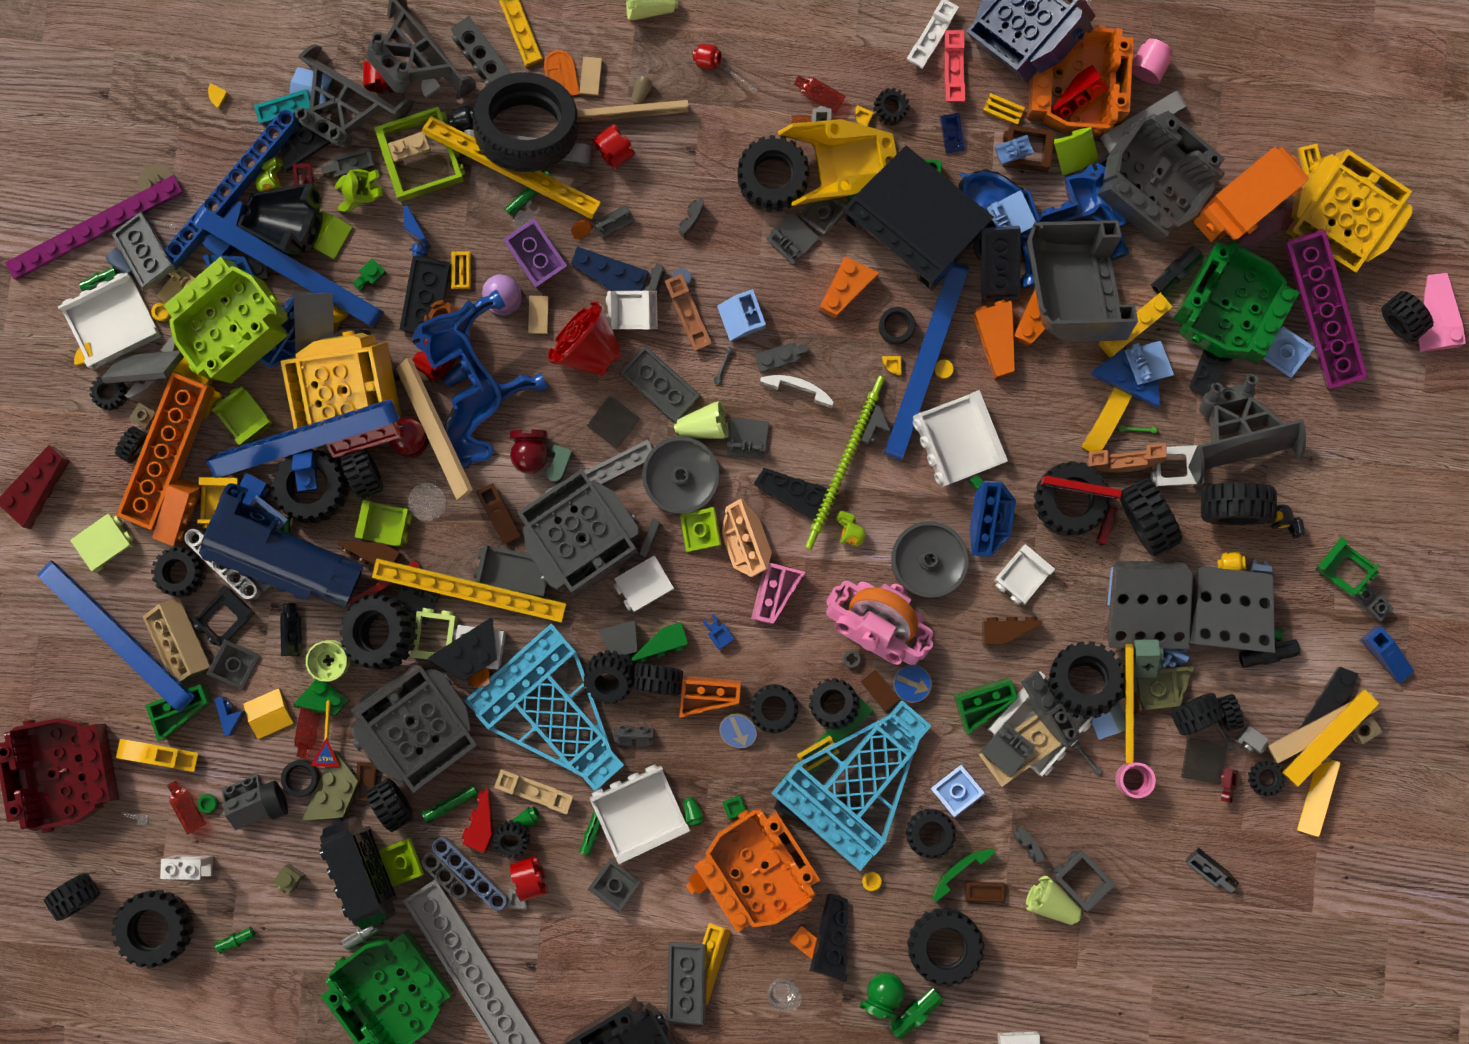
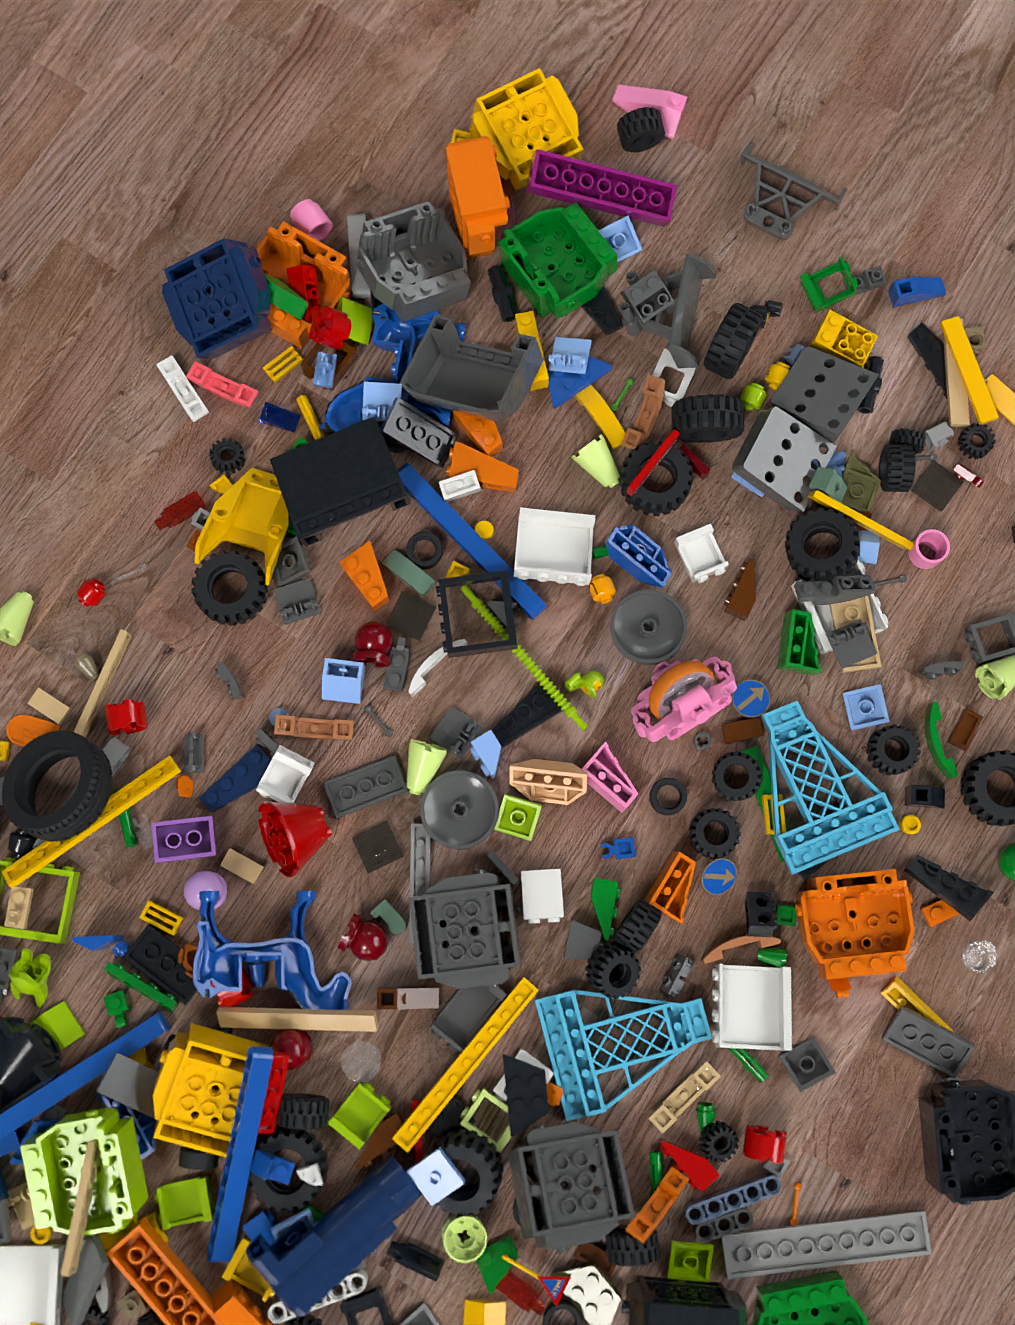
camera: 65 degrees left, 5 degrees down
(197, 332) = (81, 1208): none -> tan tile
(280, 406) = (196, 1159): none -> black tyre
(314, 506) = (311, 1174): none -> white tile
(364, 610) = (435, 1176): none -> plate
(396, 293) = (134, 982): none -> green plate
(432, 811) = (658, 1205): none -> orange slope
(507, 926) = (793, 1221): none -> orange hinge
(669, 760) = (716, 952): none -> nougat slope
(722, 782) = (757, 914): none -> black brick
(743, 475) = (488, 751): none -> light blue slope
(771, 652) = (682, 799): none -> black tyre
(787, 324) = (373, 643): none -> dark red tile
(831, 344) = (410, 616): none -> clear smoke tile
(834, 379) = (481, 648): none -> black window
(868, 322) = (409, 573): none -> sand green slope
(903, 882) = (924, 796): none -> black slope
(943, 501) = (602, 589): none -> light orange head
(966, 161) = (310, 417): none -> yellow axle
(971, 326) = (460, 486): none -> white panel
(1055, 133) = (330, 327): none -> red brick
(1060, 439) = (598, 462): none -> yellowish green cone
(1063, 77) = (286, 298): none -> green slope
(1198, 550) = (753, 396): none -> lime head
(1238, 404) = (647, 296): none -> dark grey slope
(1299, 607) = (843, 339): none -> yellow slope
(1381, 495) = (781, 228): none -> dark grey piece

